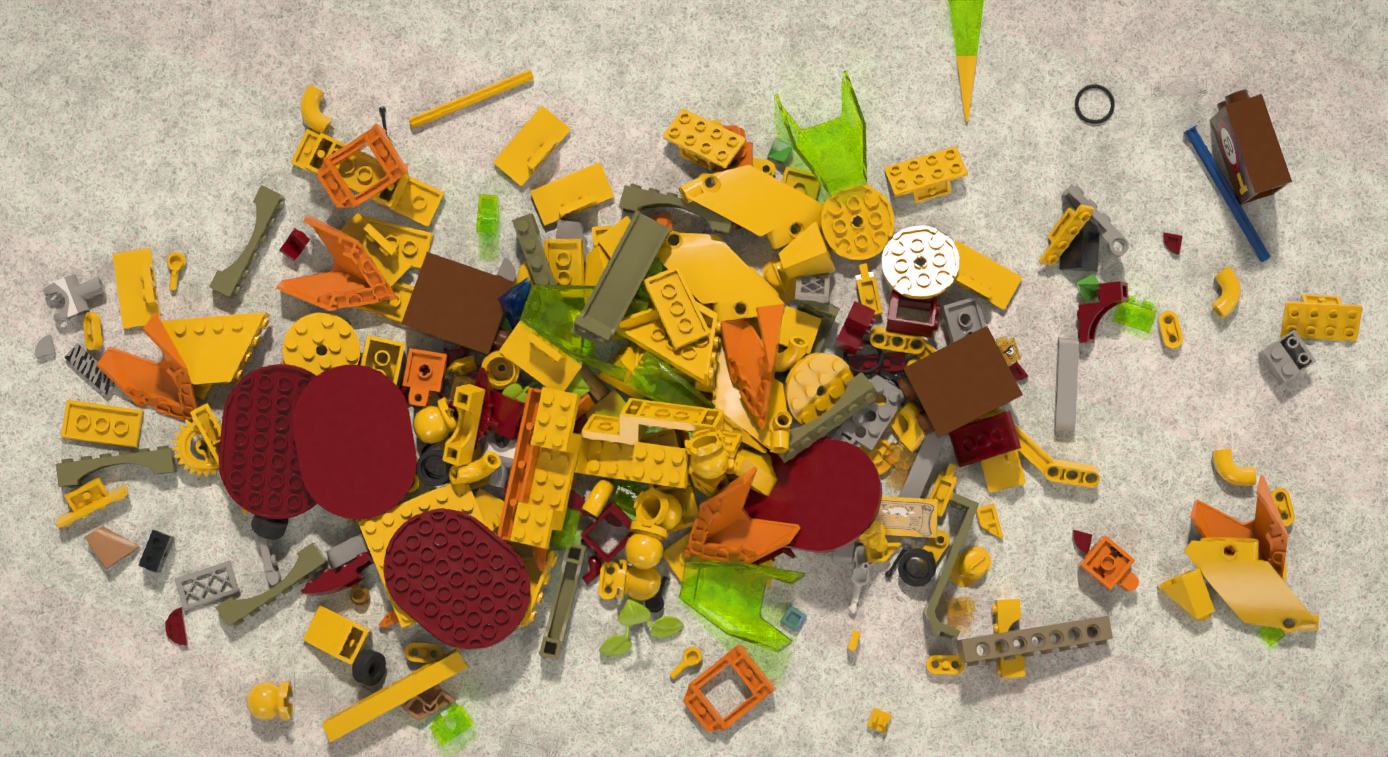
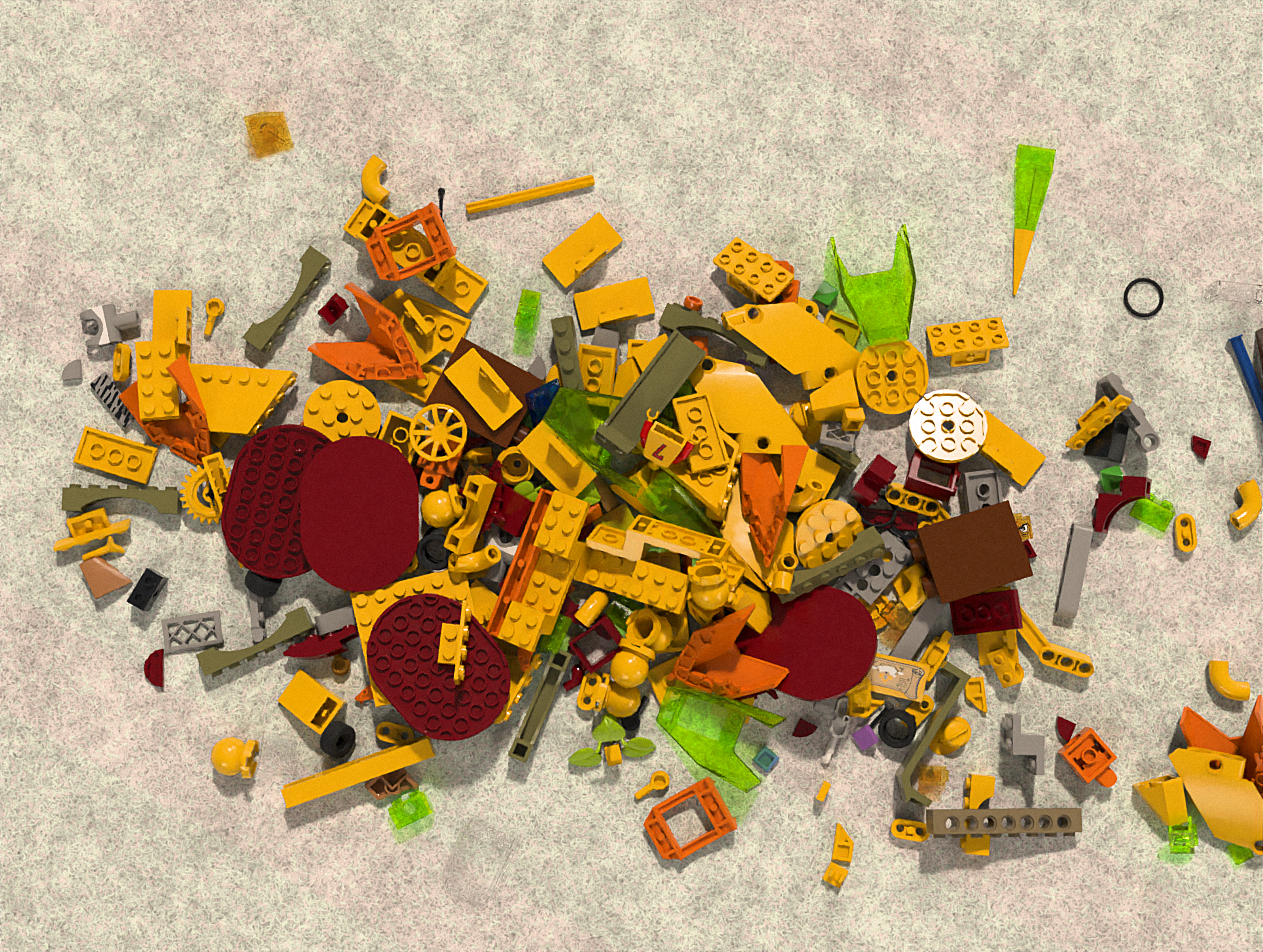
camera: 10 degrees right, 0 degrees up
(111, 516) = (109, 547): none -> yellow piece
(132, 347) = (157, 389): none -> yellow brick
(201, 79) = (268, 133): none -> clear yellow slope
(419, 349) = (438, 433): none -> yellow wheel
(457, 299) = (483, 389): none -> yellow bracket
(467, 556) = (452, 641): none -> yellow bracket
(642, 325) = (663, 444): none -> yellow torso
(642, 638) = (613, 754): none -> yellow slope
(650, 181) = (693, 303): none -> orange tile
(824, 270) = (852, 419): none -> yellow slope
(826, 583) = (804, 729): none -> dark red tile
(868, 289) = (891, 444): yellow hinge -> none
(881, 690) = (842, 845): none -> yellow tile
(887, 581) = (865, 737): none -> medium lavender tile
(1015, 493) = (1006, 670): none -> yellow plate
(1042, 562) = (1023, 743): none -> light grey bracket
(1212, 628) = (1183, 838): none -> clear neon green bracket

